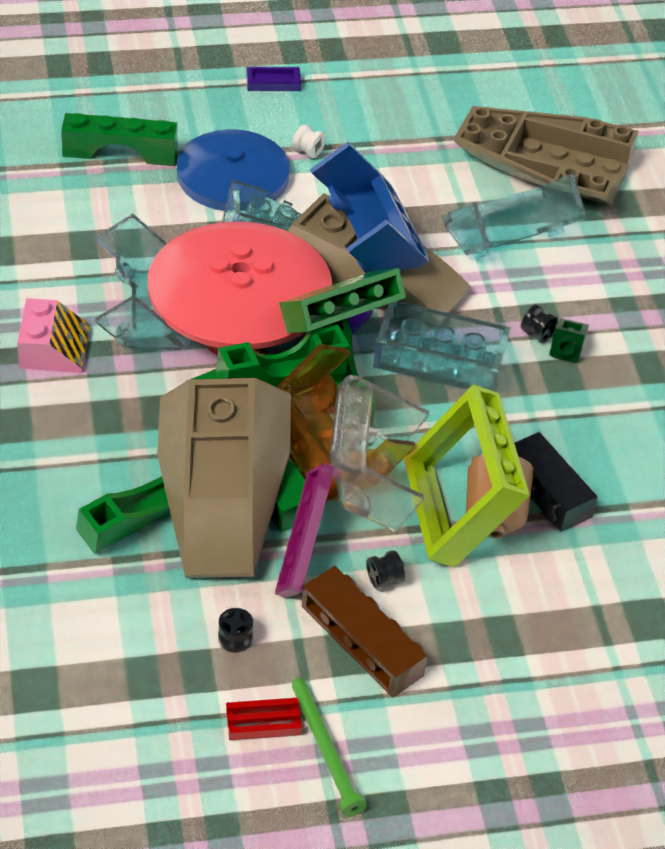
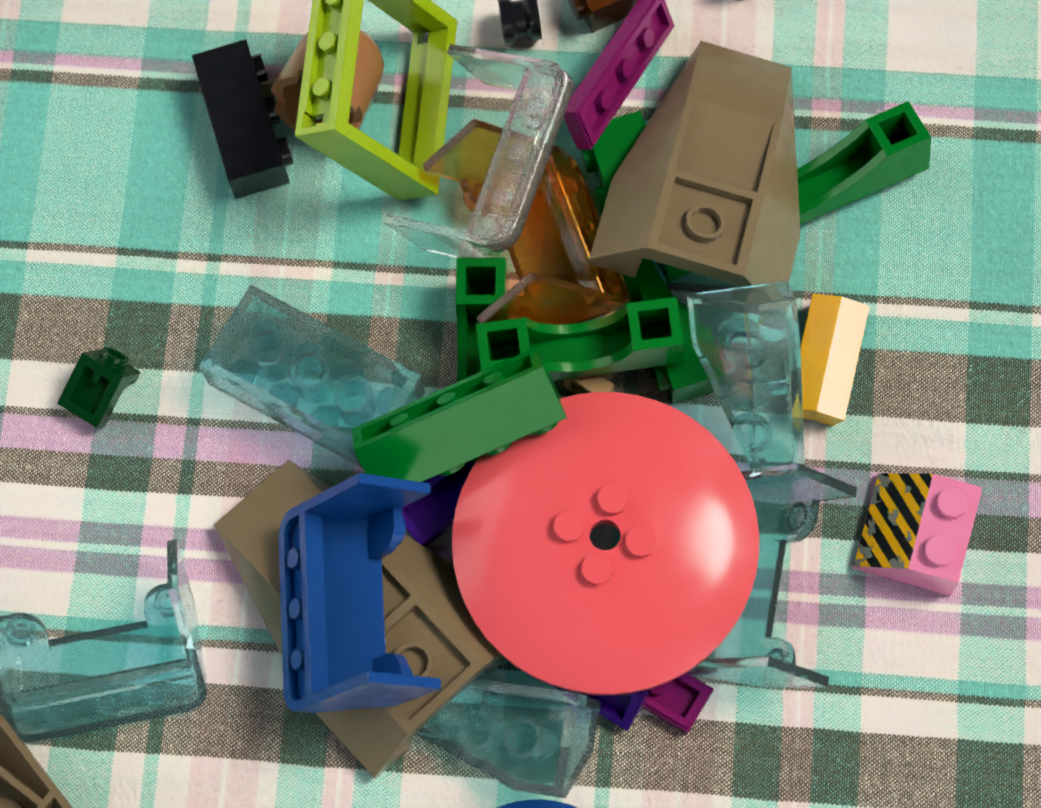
camera: 155 degrees left, 25 degrees up
(124, 414) = (830, 356): none -> yellow piece
(172, 363) = (754, 364): none -> clear light blue wedge
(539, 323) = (135, 418): black wheel -> none

